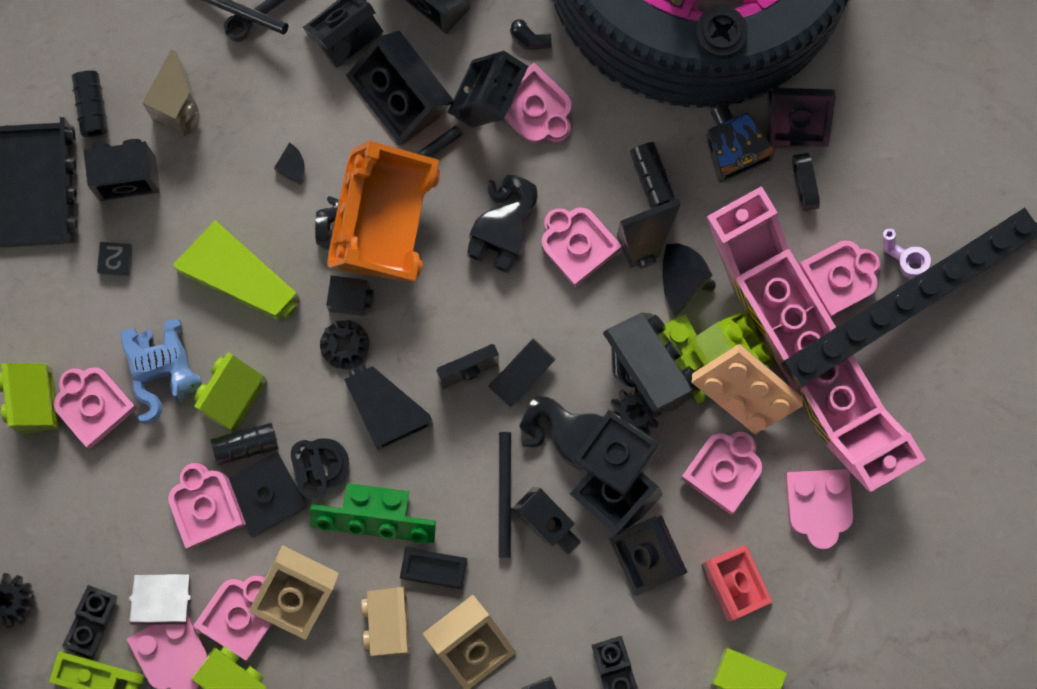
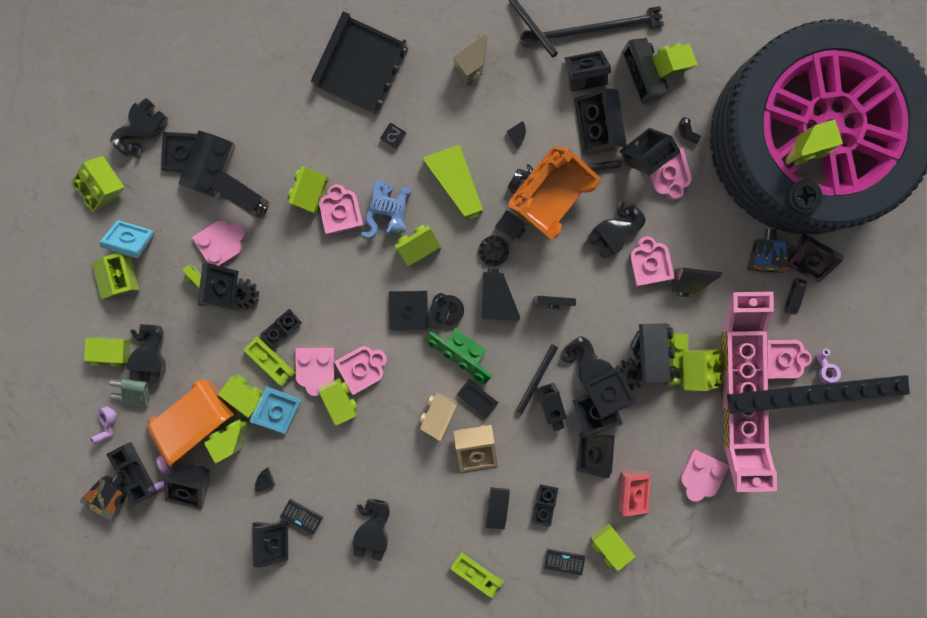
camera: 30 degrees right, 10 degrees up
(89, 103) = (423, 39): black axle -> none
(121, 170) = (422, 88): black brick -> none
(160, 599) = (323, 337): piece -> none
(204, 505) = (373, 298): bright pink plate -> none
(244, 443) = (411, 277): black axle -> none
(294, 592) = (397, 372): tan slope -> none
(521, 372) = (581, 318): black slope -> none
(652, 174) = (713, 247): black axle -> none
(684, 276) = (699, 313): black shield -> none
(725, 469) = (662, 429): bright pink plate -> none
(747, 389) = (700, 396): light nougat plate -> none

